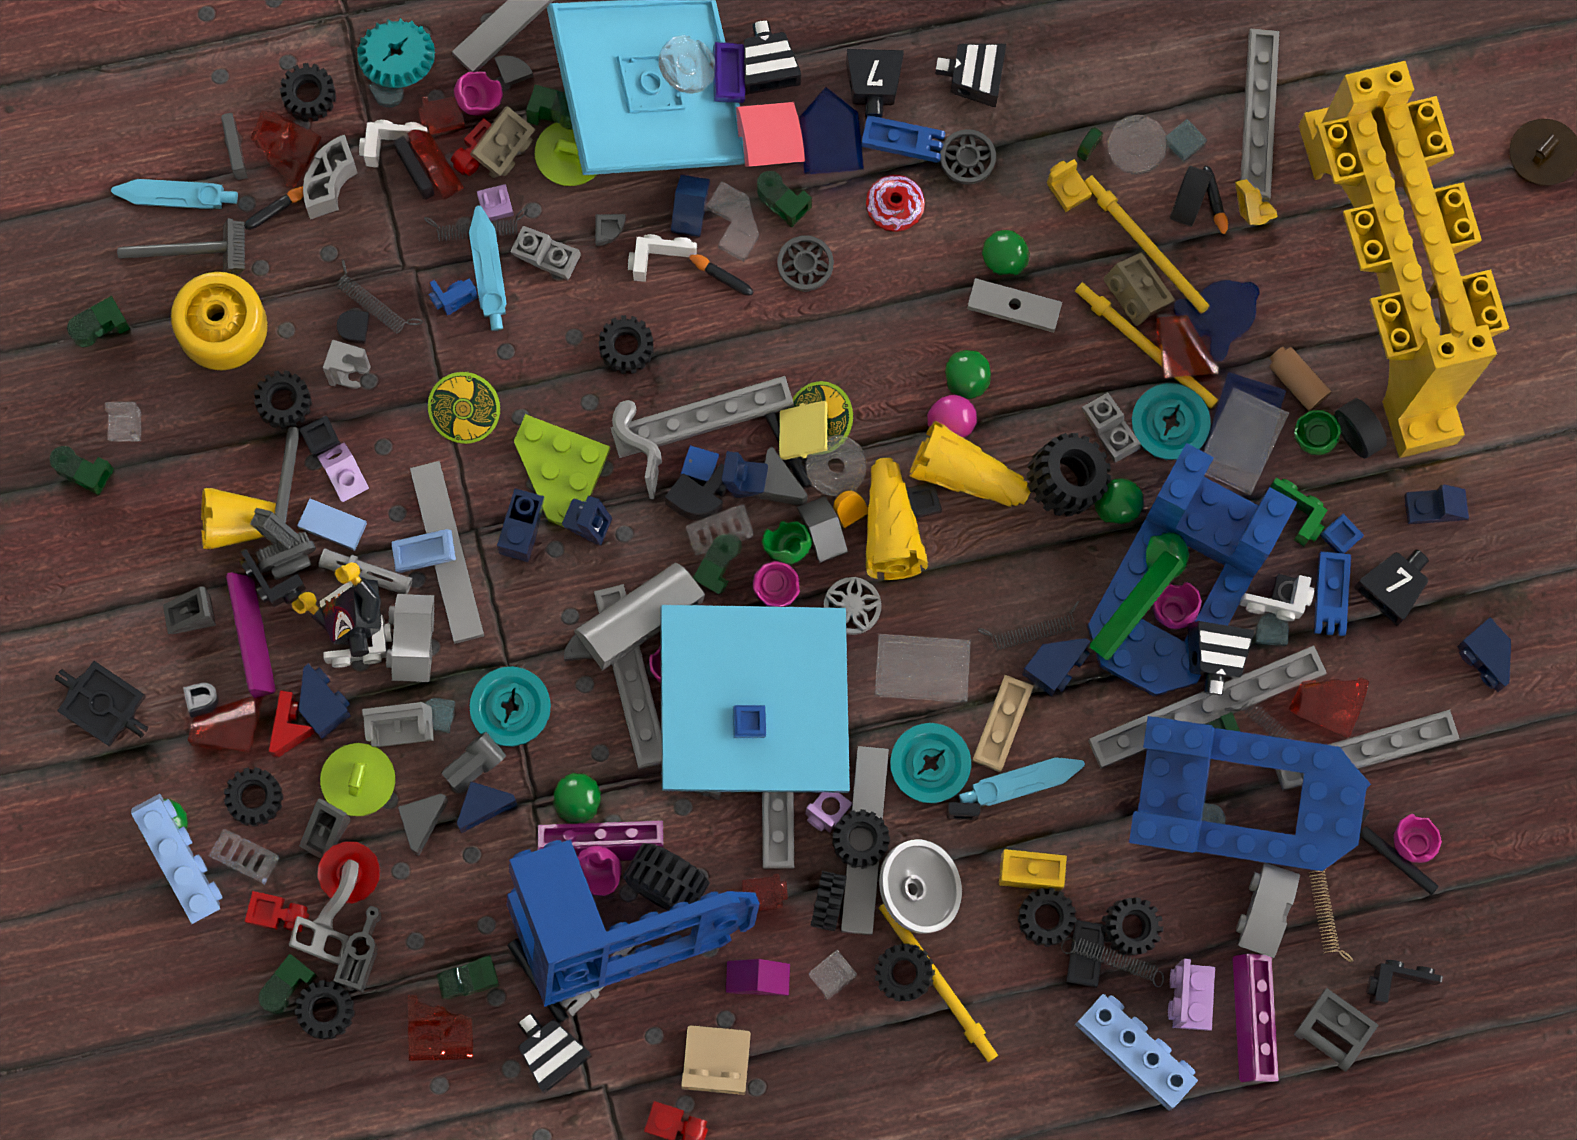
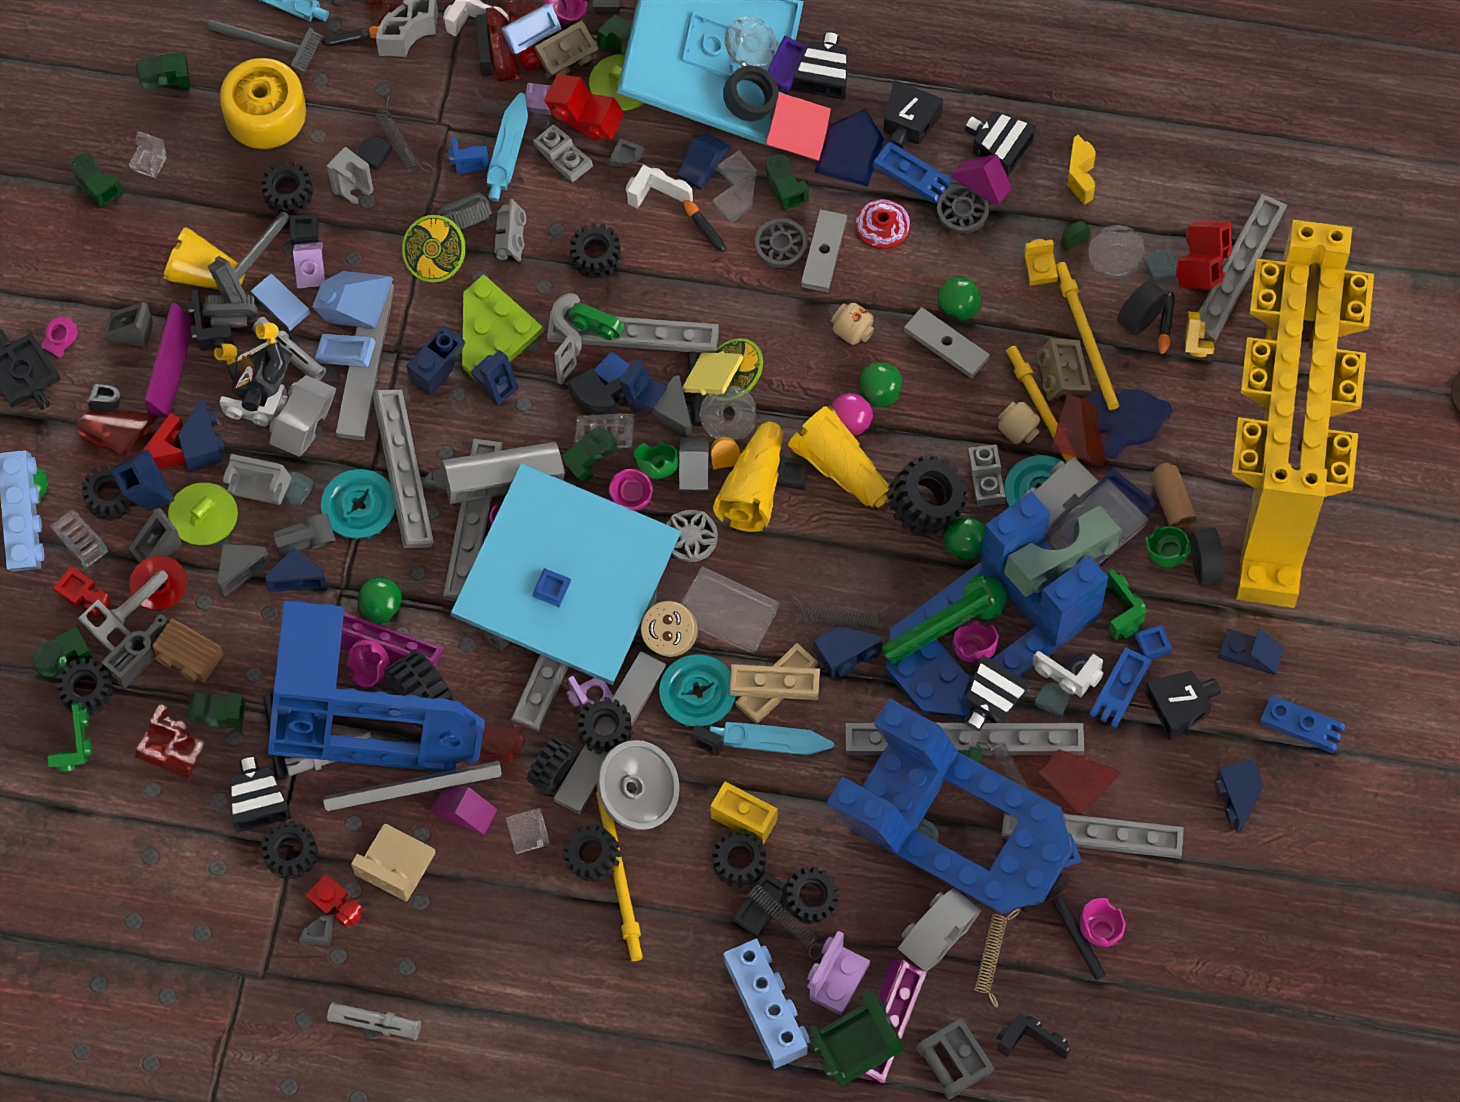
camera: 30 degrees right, 10 degrees down
(122, 650) = (59, 335): none -> dark pink animal
(285, 774) = (142, 481): none -> dark blue slope
(346, 1090) = (68, 759): none -> green bracket
(407, 492) = (352, 298): none -> medium blue slope
(411, 931) = (187, 651): none -> medium nougat brick
(458, 133) = (531, 28): none -> light blue tile
(479, 354) = (467, 210): none -> dark grey piece
(528, 345) = (510, 219): none -> light grey hinge
(537, 651) = (403, 469): none -> light grey tile
(548, 200) = (586, 112): none -> red brick
(607, 1072) = (301, 862): none -> black tyre
(674, 422) = (604, 324): none -> green plate
(698, 976) = (412, 786): none -> light grey tile
(703, 137) = (764, 81): none -> black tyre
(849, 240) = (826, 238): none -> light grey tile
(877, 713) = (669, 629): none -> tan head
(916, 322) = (853, 323): none -> tan head
(976, 116) = (985, 177): none -> magenta slope
(1003, 725) = (774, 682): none -> tan tile
(1061, 59) = (1081, 162): none -> yellow slope
(1120, 362) = (1019, 423): none -> tan head
(1197, 418) = (1064, 489): none -> light grey brick
(1212, 511) = (1035, 568): none -> sand green arch
(1226, 106) = (1208, 246): none -> red brick
(1241, 1054) = (857, 1040): none -> dark green panel
(1513, 559) = (1302, 723): none -> blue hinge

